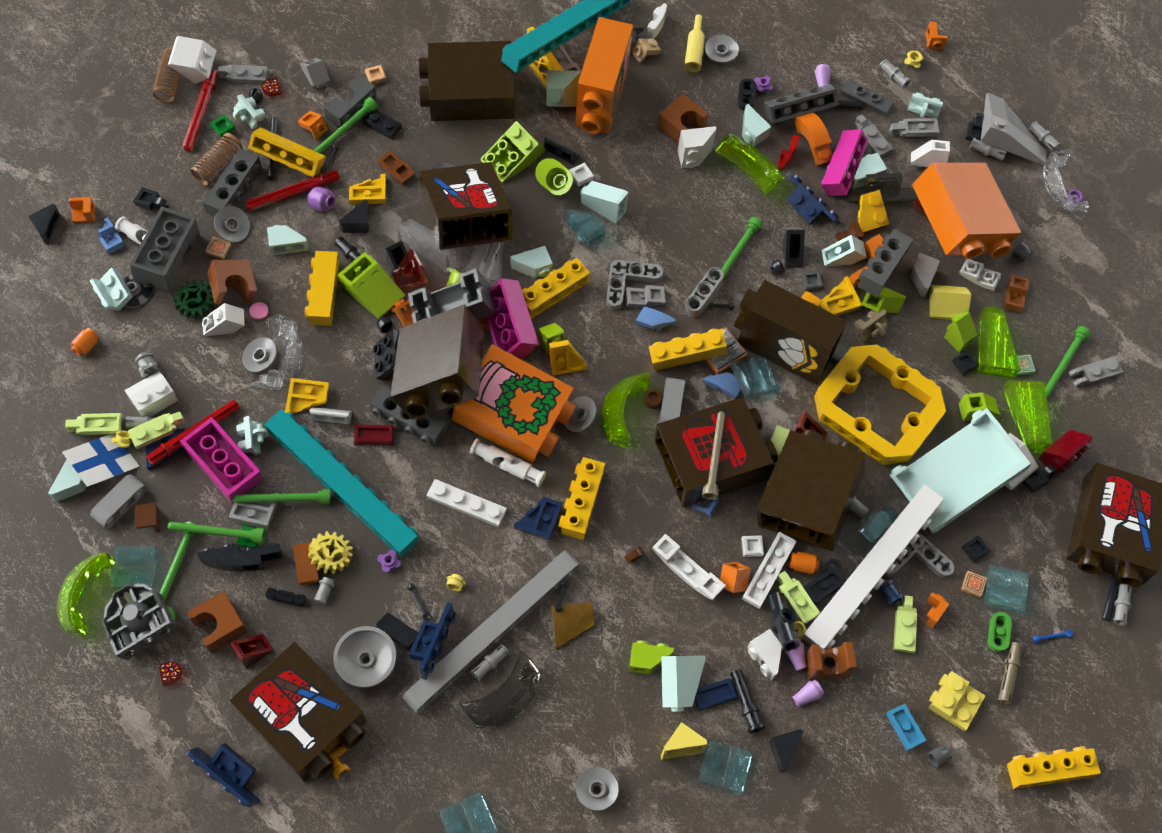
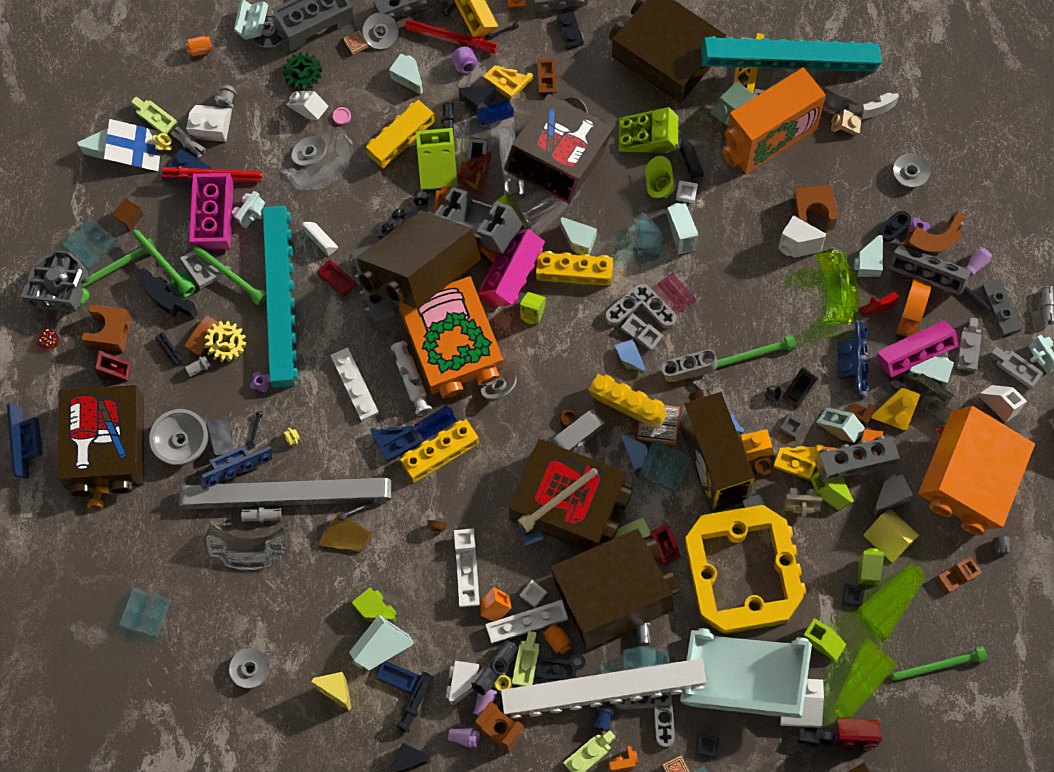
camera: 50 degrees right, 5 degrees up
(72, 589) = (38, 226): clear neon green windscreen -> none
(118, 501) = (120, 186): light grey beam -> none
(155, 429) = (187, 151): yellowish green hinge -> none
(231, 274) = (342, 71): dark orange piece -> none
(306, 395) = (314, 208): yellow wing -> none
(368, 106) = (569, 8): bright green piece -> none
(383, 220) = (494, 113): none -> clear blue hinge
(557, 480) = (435, 422): none -> clear blue hinge
(565, 358) = (527, 333): yellow wing -> none
(613, 408) = (534, 398): clear neon green windscreen -> none
(642, 253) = (687, 304): none -> clear pink tile
(695, 47) = (890, 151): light yellow piece -> none
(725, 767) = (354, 734): clear light blue slope -> none
(788, 80) = (933, 244): none -> dark orange arch
(976, 273) = (942, 535): white slope -> none
(1026, 365) = (900, 637): tile -> none
(1097, 371) = (960, 695): light grey hinge -> none

